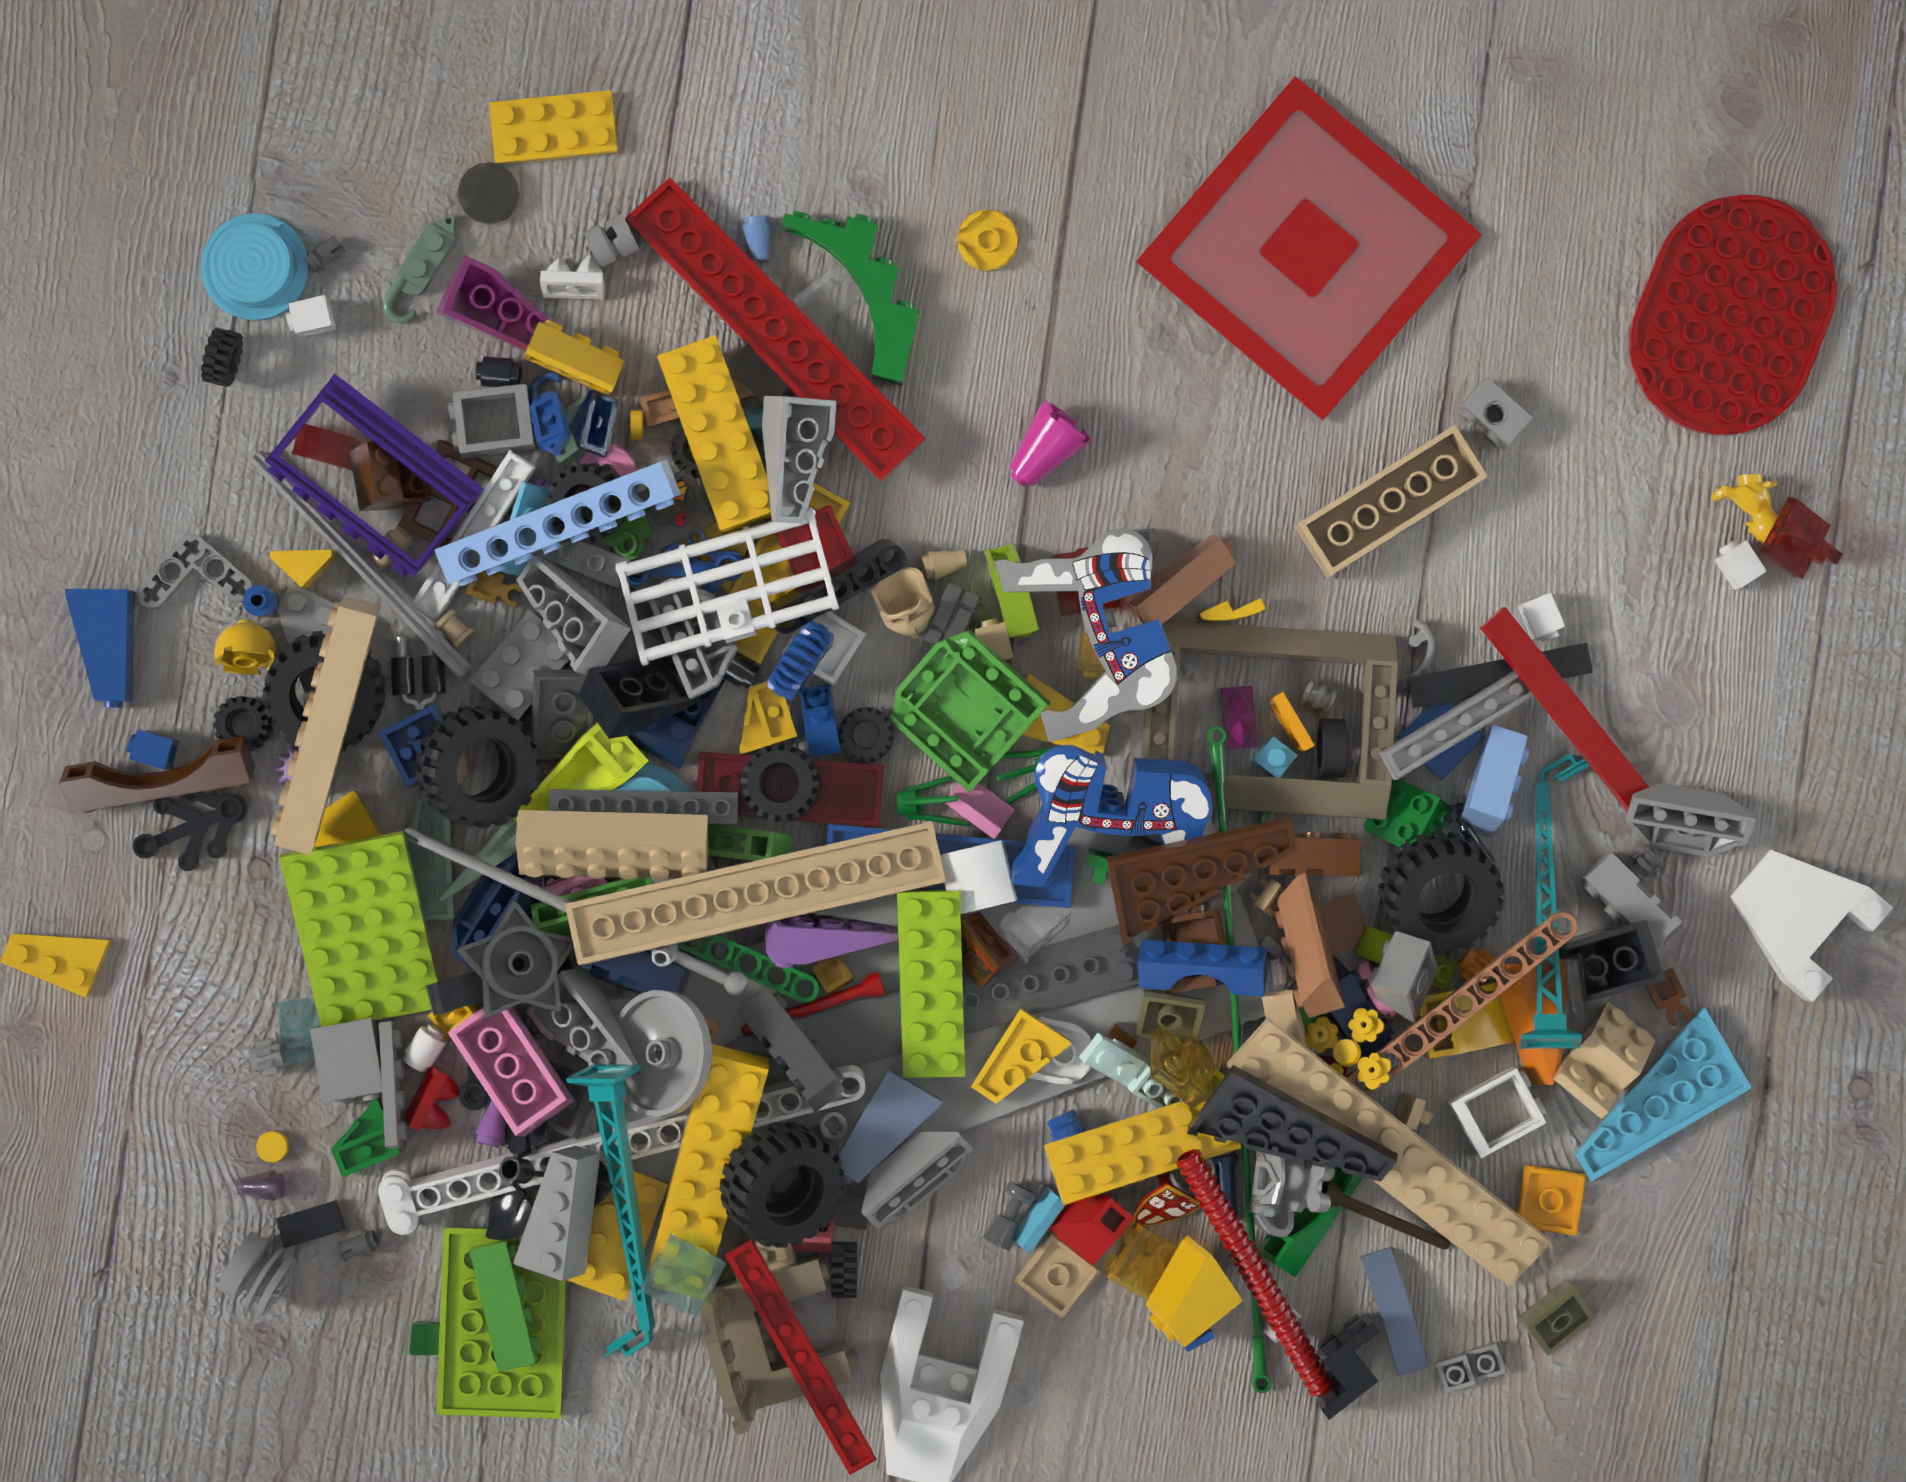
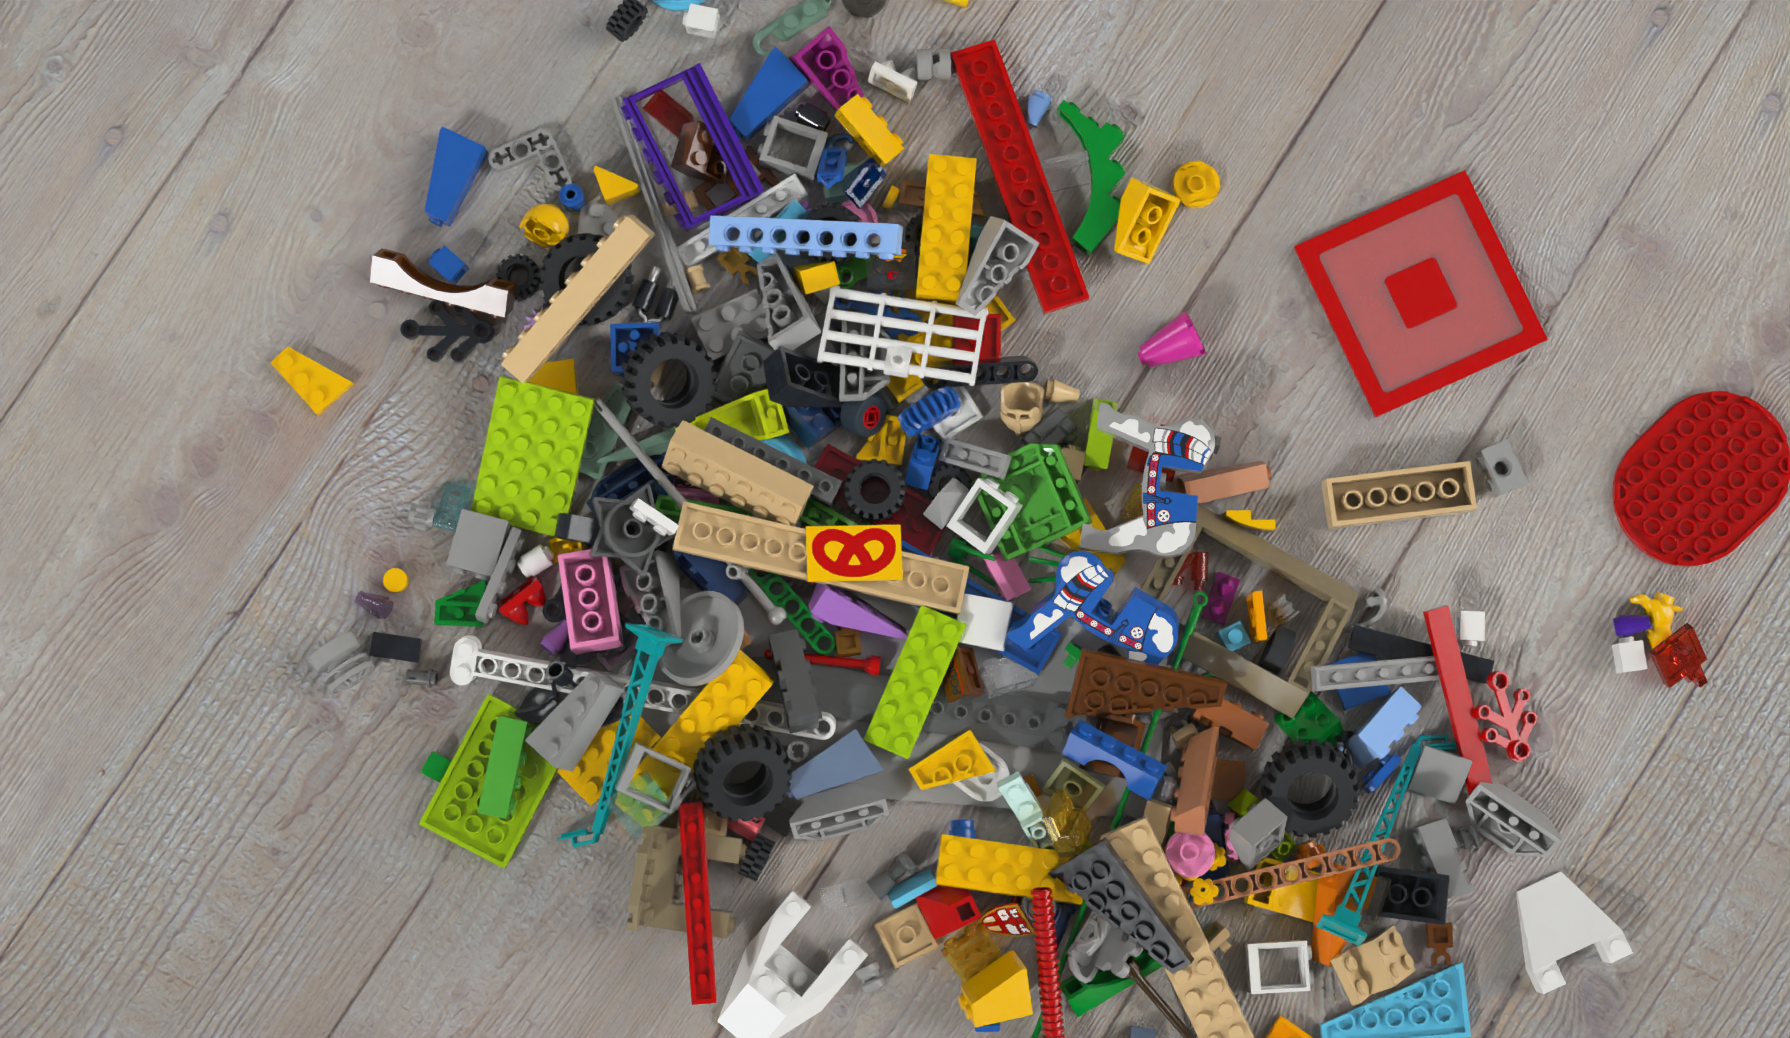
camera: 25 degrees right, 5 degrees down
(433, 368) = (768, 95): none -> blue slope
(552, 943) = (661, 523): none -> white plate
(592, 562) = (816, 276): none -> yellow slope
(719, 1252) = (630, 767): none -> light grey window
(728, 703) = (863, 417): none -> black wheel
(791, 869) = (853, 553): none -> sticker
(871, 757) = (946, 503): none -> light grey slope
(879, 690) = (975, 458): none -> light grey plate
(914, 780) = (970, 534): none -> white window
(945, 314) = (1143, 219): none -> yellow slope
(1033, 1338) = (867, 972): none -> light grey wheel
(1199, 696) = (1199, 569): none -> clear red plant
(1338, 1035) = (1190, 854): none -> bright pink tile
(1509, 846) = (1374, 779): none -> blue plate
(1583, 804) = (1439, 774): none -> light grey slope
(1634, 703) = (1508, 719): none -> plant
(1725, 527) = (1631, 624): none -> dark purple cone

